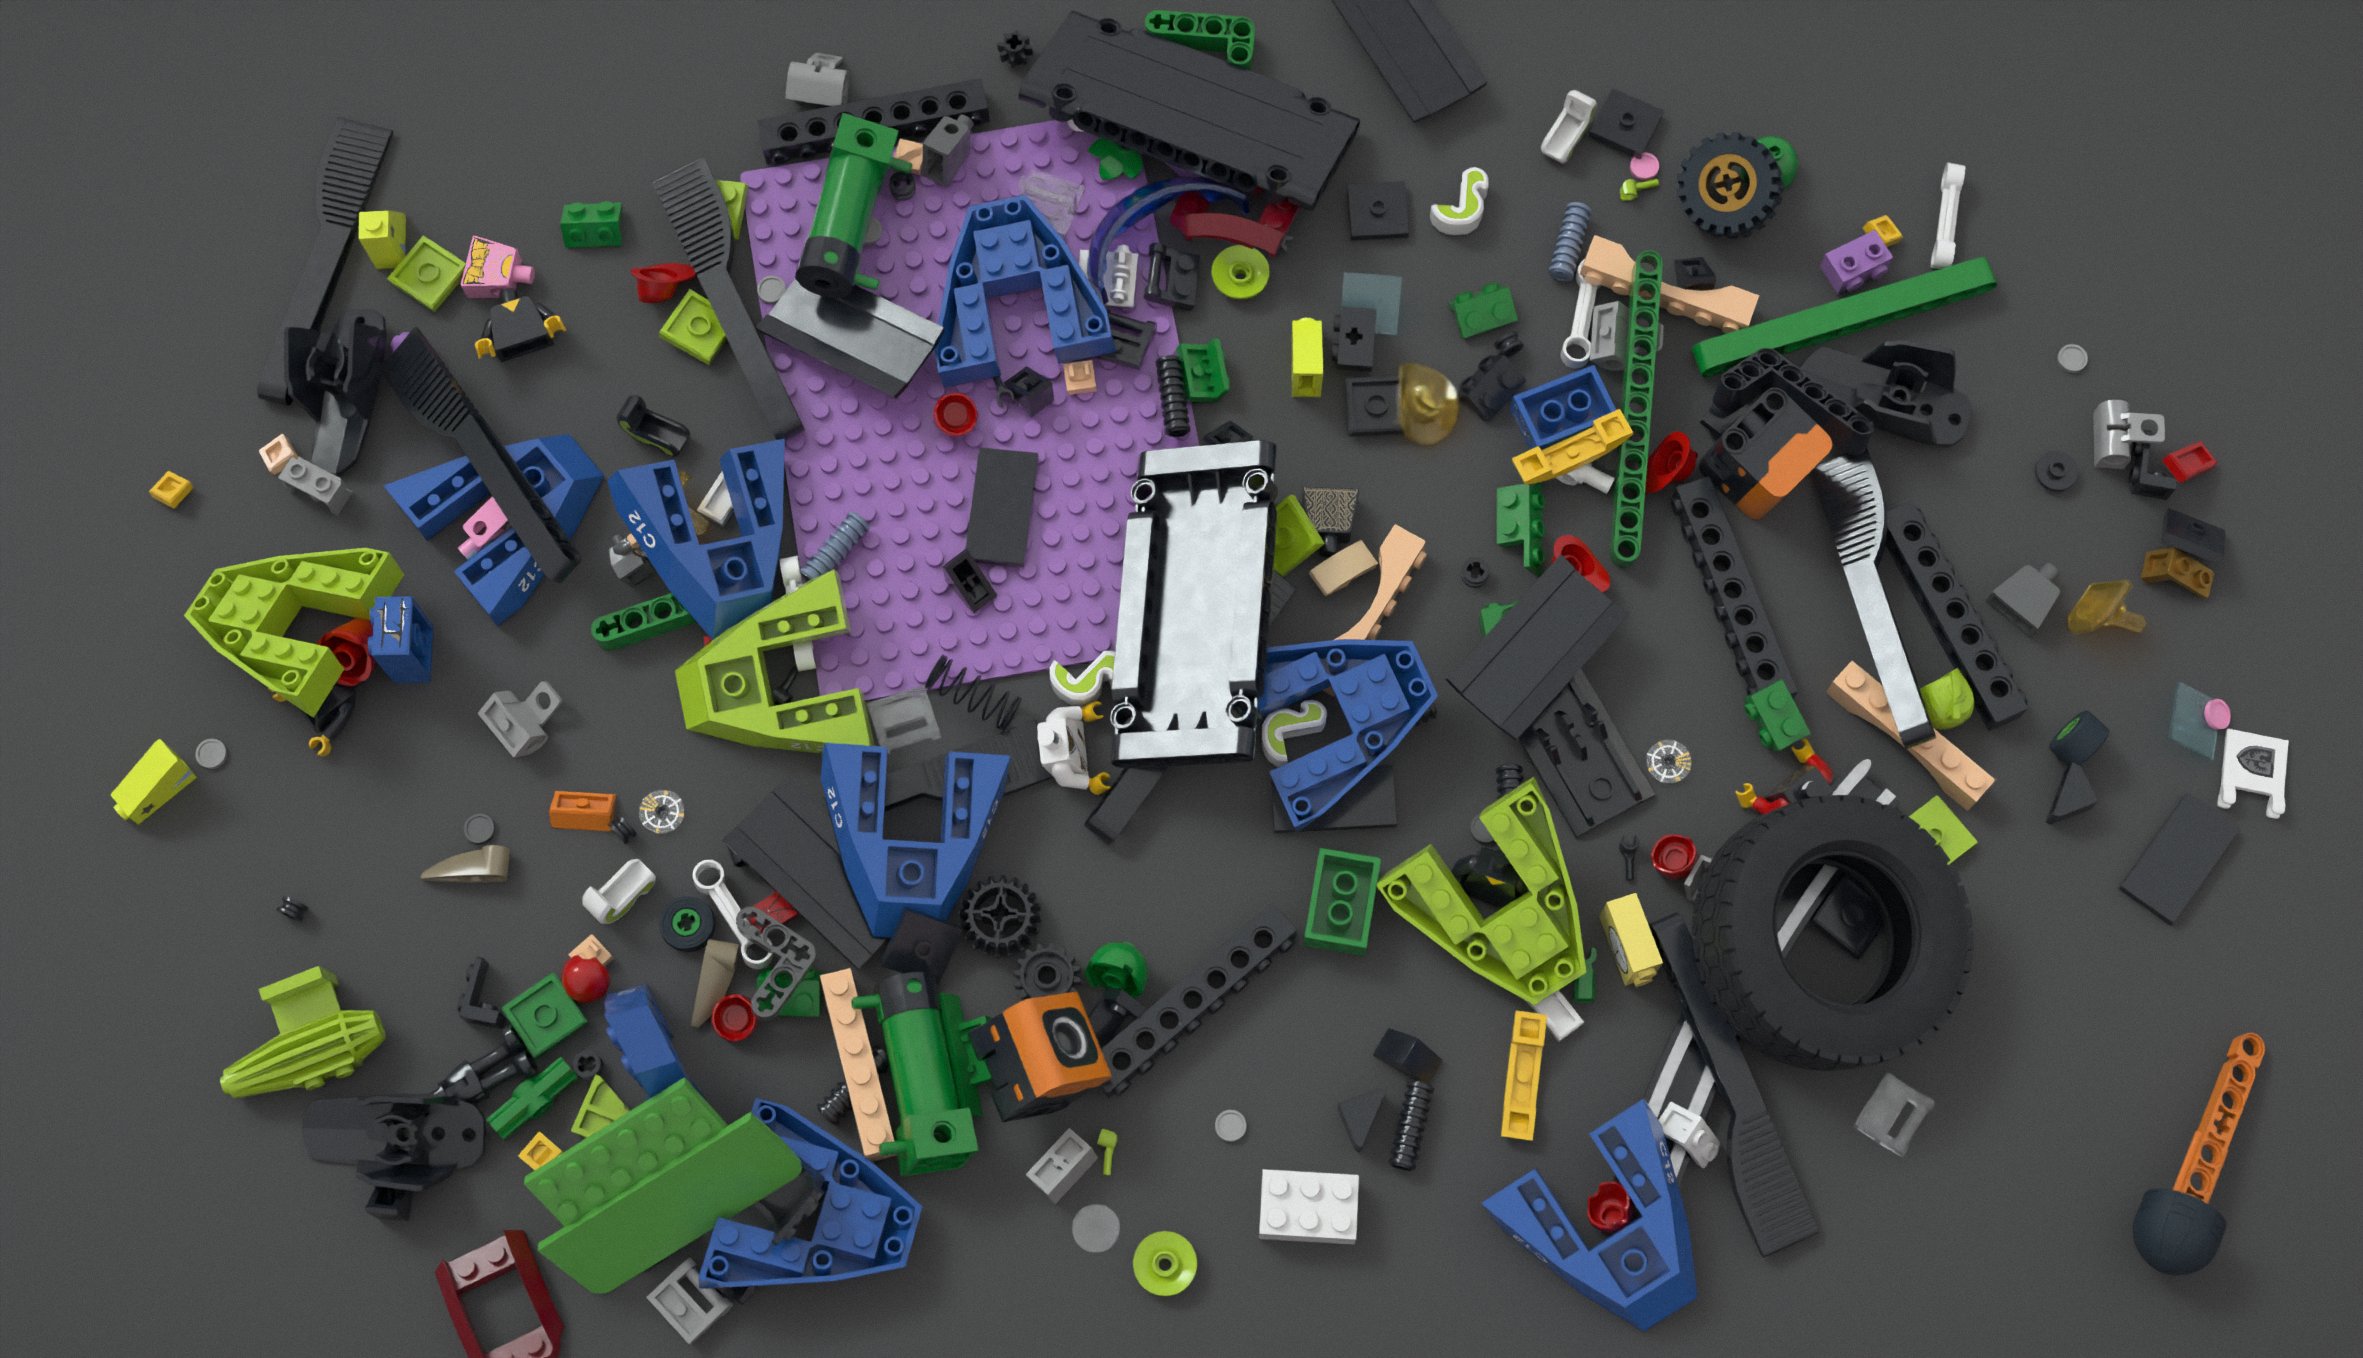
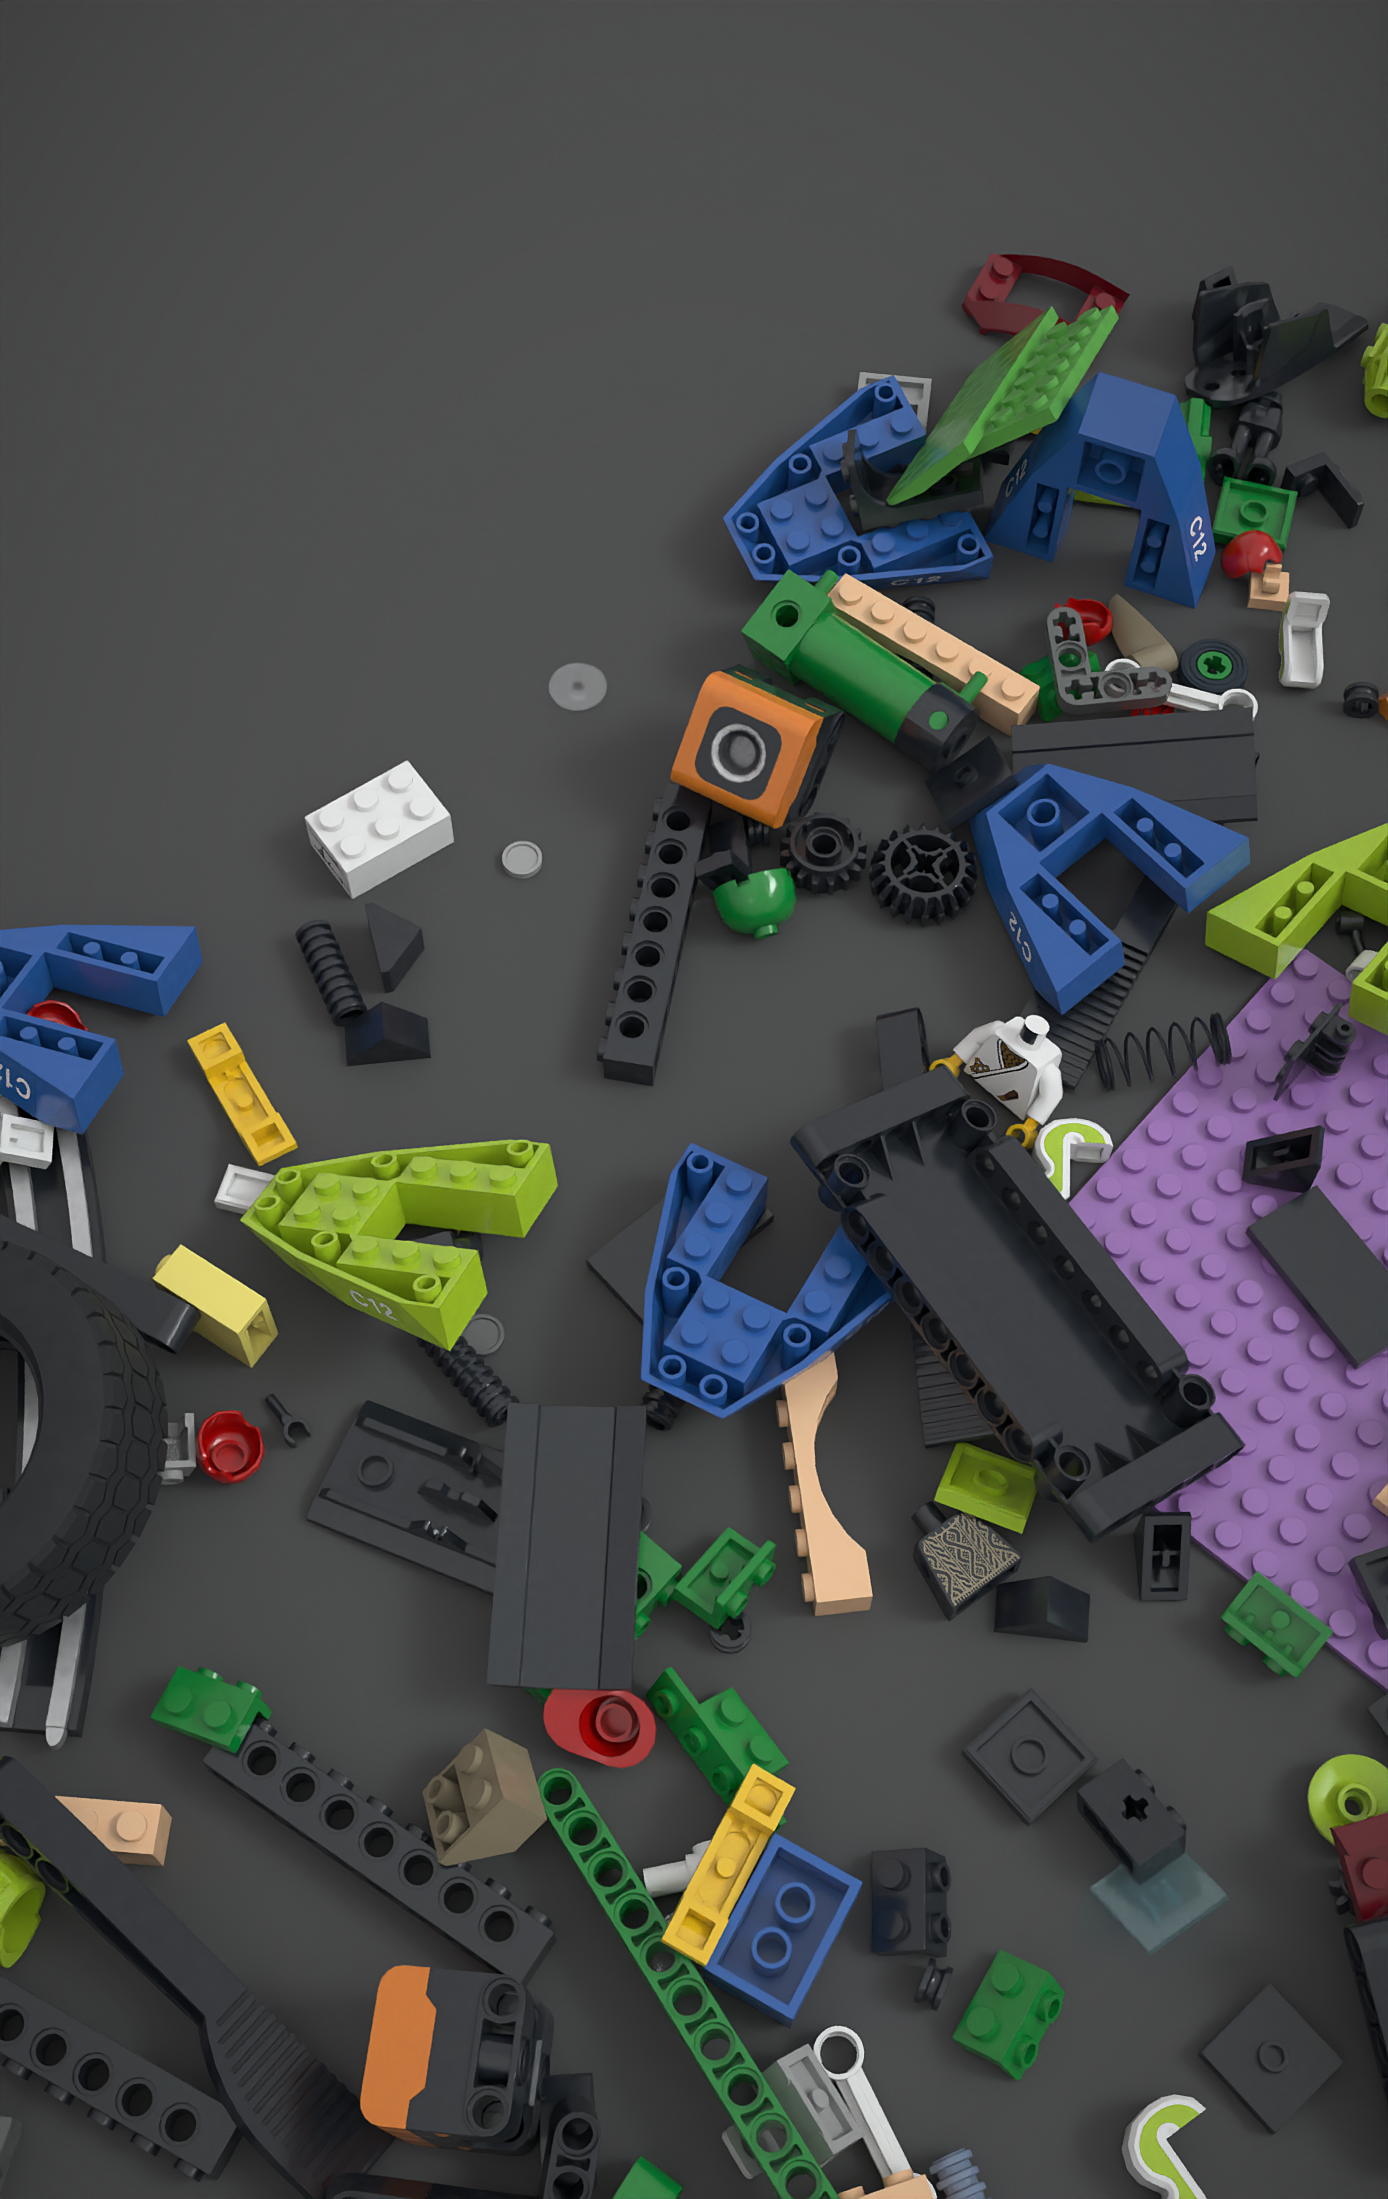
camera: 140 degrees right, 10 degrees down
(661, 811) = (1343, 743): clear piece -> none
(888, 624) = (1322, 1050): none -> black hinge
(900, 711) = (1219, 992): clear plate -> none
(965, 1067) = (859, 747): green bracket -> none
(1062, 1166) = (656, 706): light grey hinge -> none
(1109, 1140) = (631, 764): lime hand -> none
(1157, 1248) = (484, 685): lime dish -> none
(1172, 396) = (1278, 1556): black piece -> none
(1288, 724) = (800, 1250): white animal -> none
(1307, 358) = (1170, 1743): neon yellow slope -> none
(1309, 464) = (1042, 1609): none -> black slope
(1342, 902) = (582, 1121): green brick -> none
(1343, 568) = (890, 1506): tan slope -> none
(1426, 404) = (975, 1808): clear yellow hat -> none
(1459, 591) = (724, 1577): none -> green bracket
(1585, 985) = (247, 1249): green bar -> none
(1667, 569) = (484, 1801): none -> dark tan slope
(1668, 761) = (315, 1567): clear piece -> none
(1670, 462) = (591, 1968): red piece -> none
(1805, 783) = (120, 1634): torso -> none

